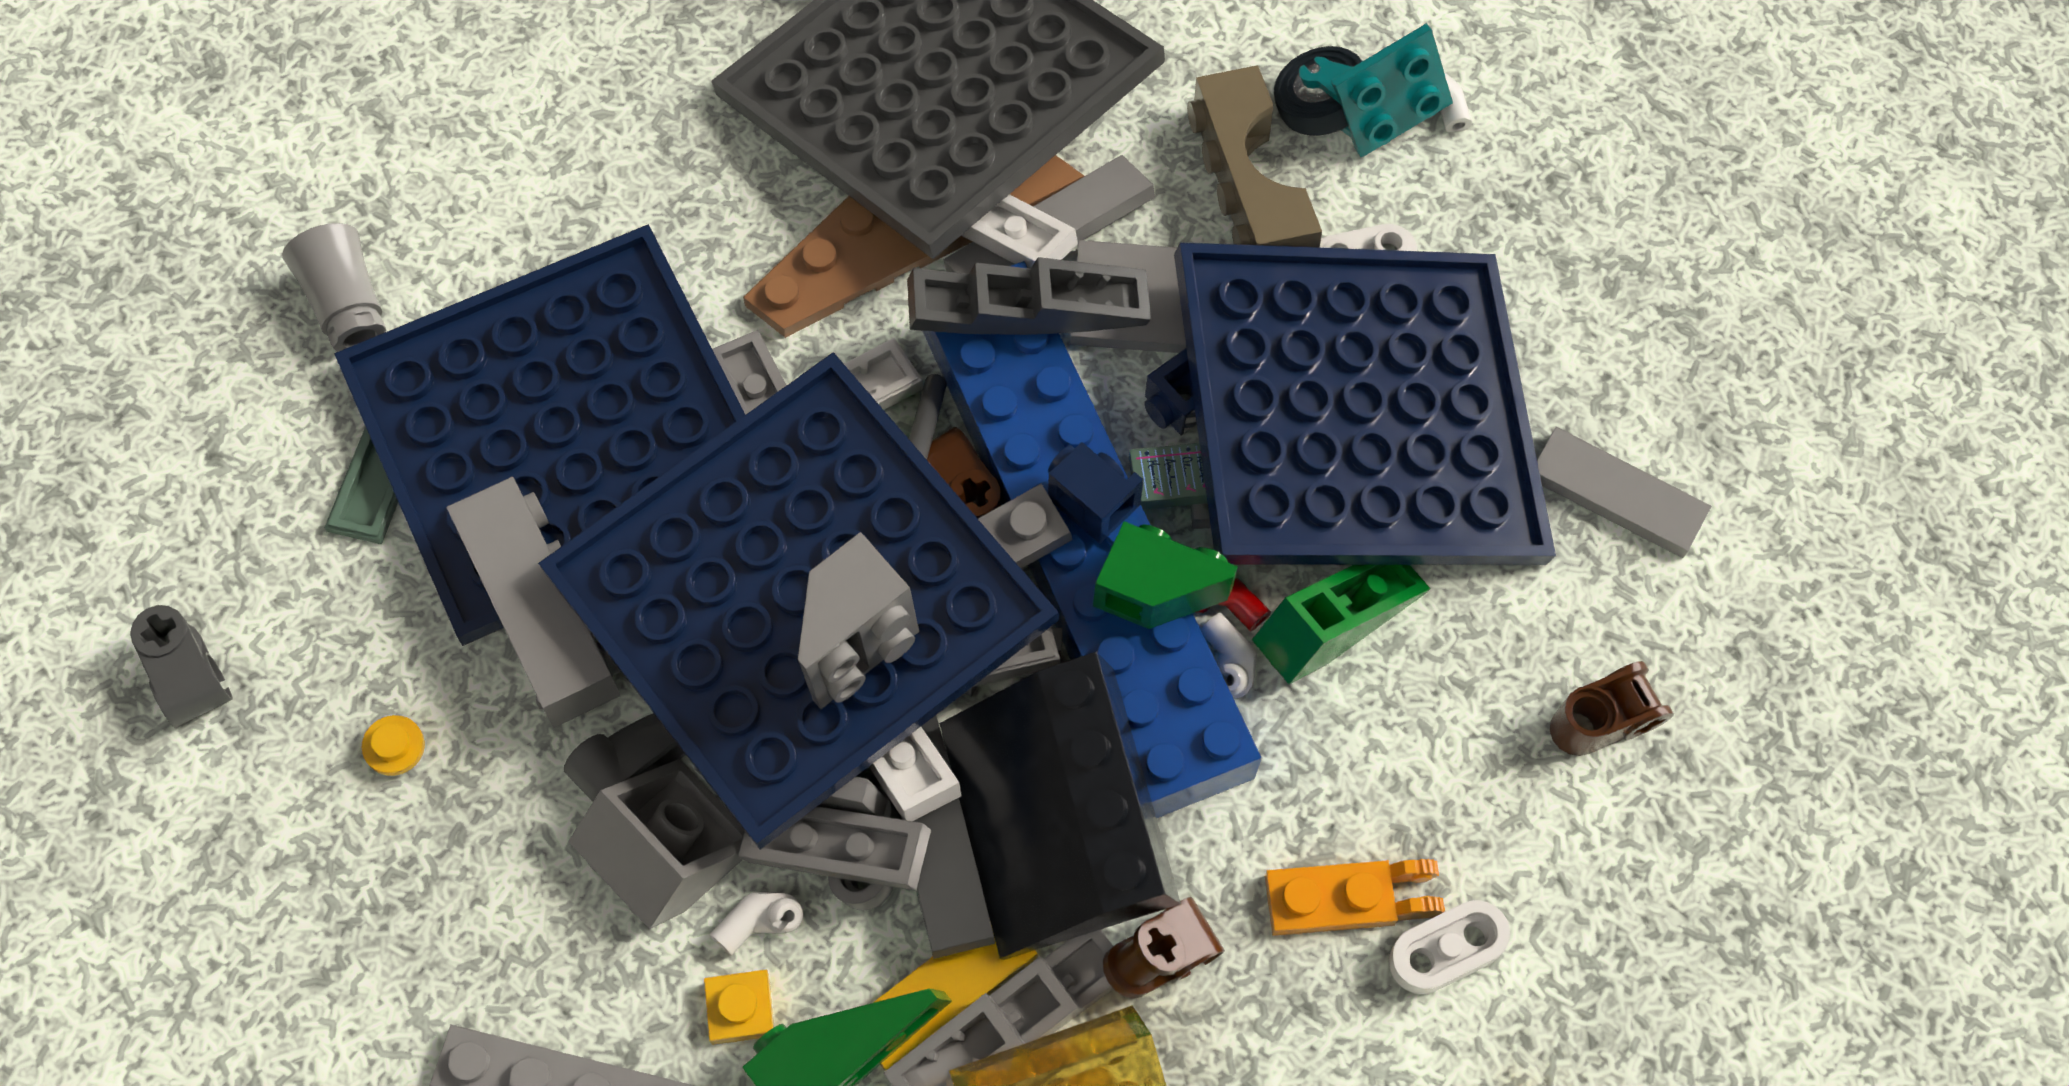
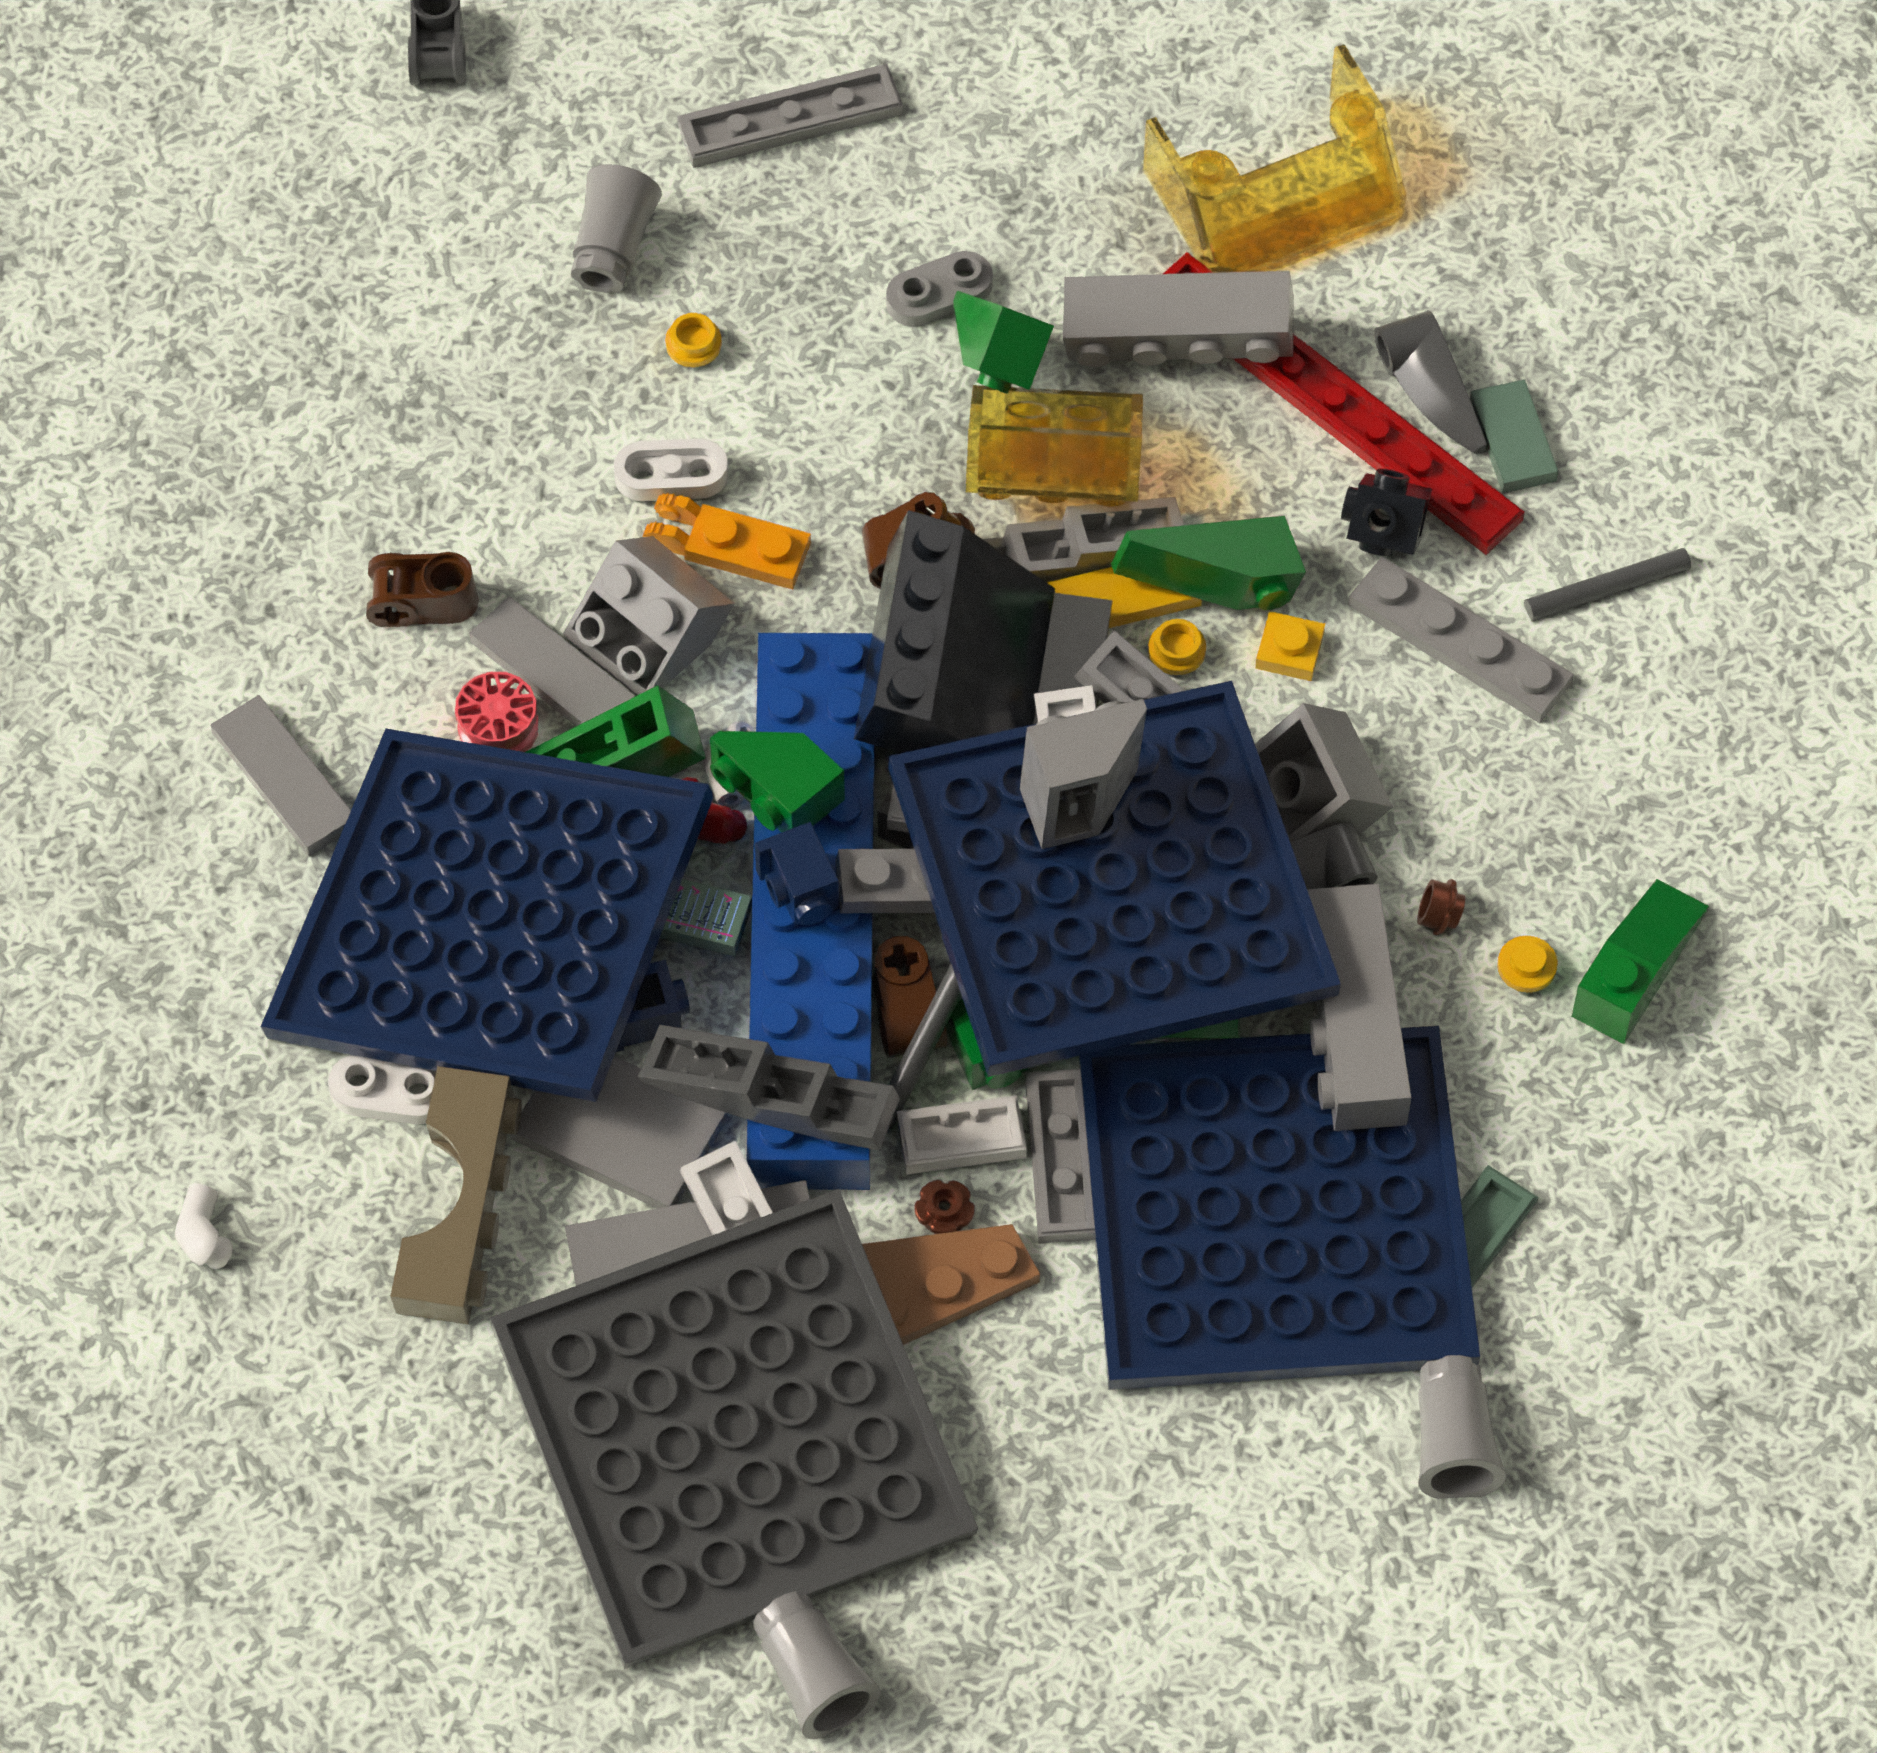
camera: 155 degrees left, 5 degrees down
(180, 672) = (1708, 1102): dark grey piece -> none
(279, 787) = (1636, 960): none -> green slope
(494, 770) = (1441, 906): none -> copper plate
(757, 914) = (1264, 707): white arm -> none
(852, 338) = (944, 1221): none -> copper plate
(853, 955) = (1177, 647): none -> yellow plate
(1364, 99) = (329, 1253): teal plate -> none
(1383, 770) = (647, 614): none -> light grey slope
(1444, 690) = (547, 663): none -> light grey tile
(1463, 613) = (484, 705): none -> coral wheel

